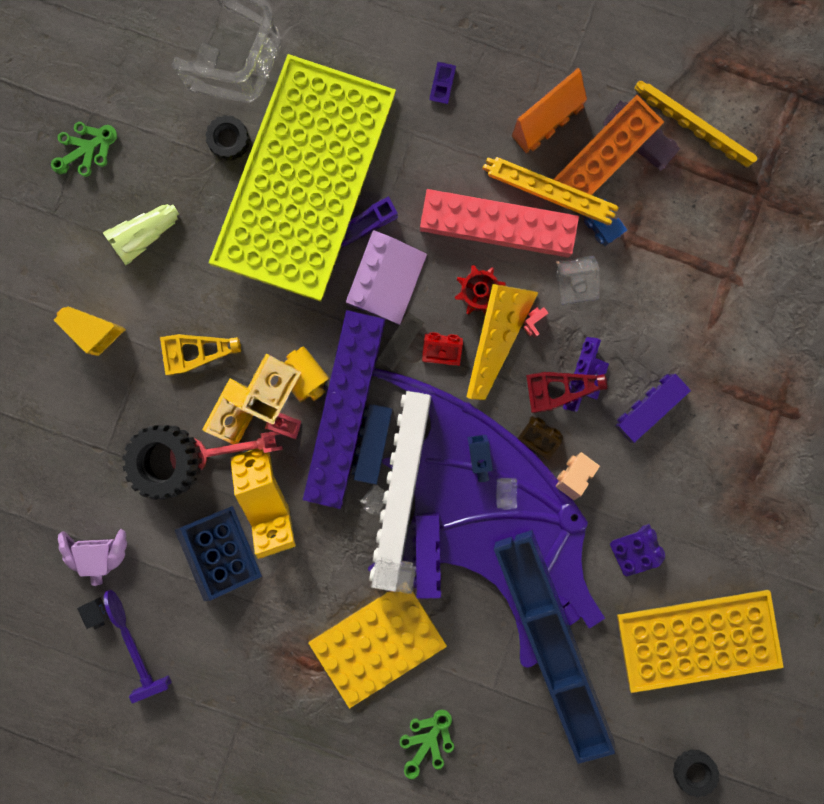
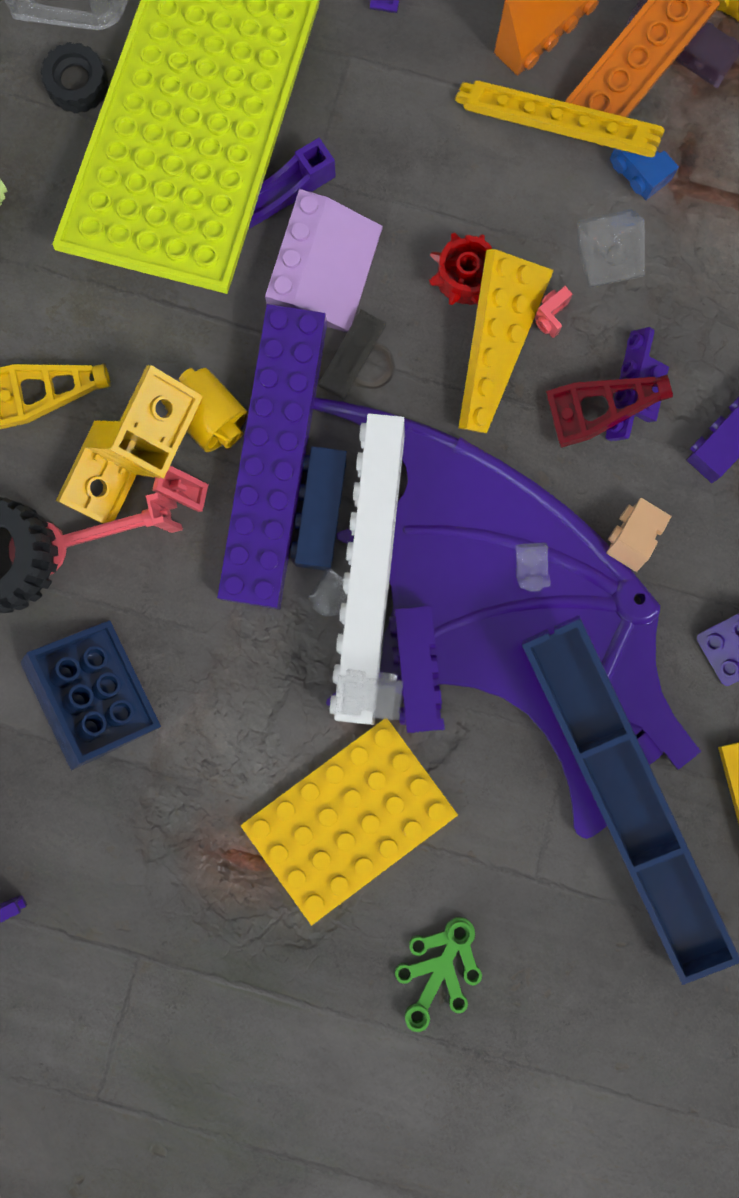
camera: 10 degrees left, 5 degrees down
(262, 502) = (154, 605): yellow bracket -> none
(442, 349) = (416, 362): red bracket -> none
(479, 450) = (486, 499): dark blue torso -> none
(499, 223) = (486, 172): coral brick -> none
(541, 437) = (576, 483): dark brown bracket -> none

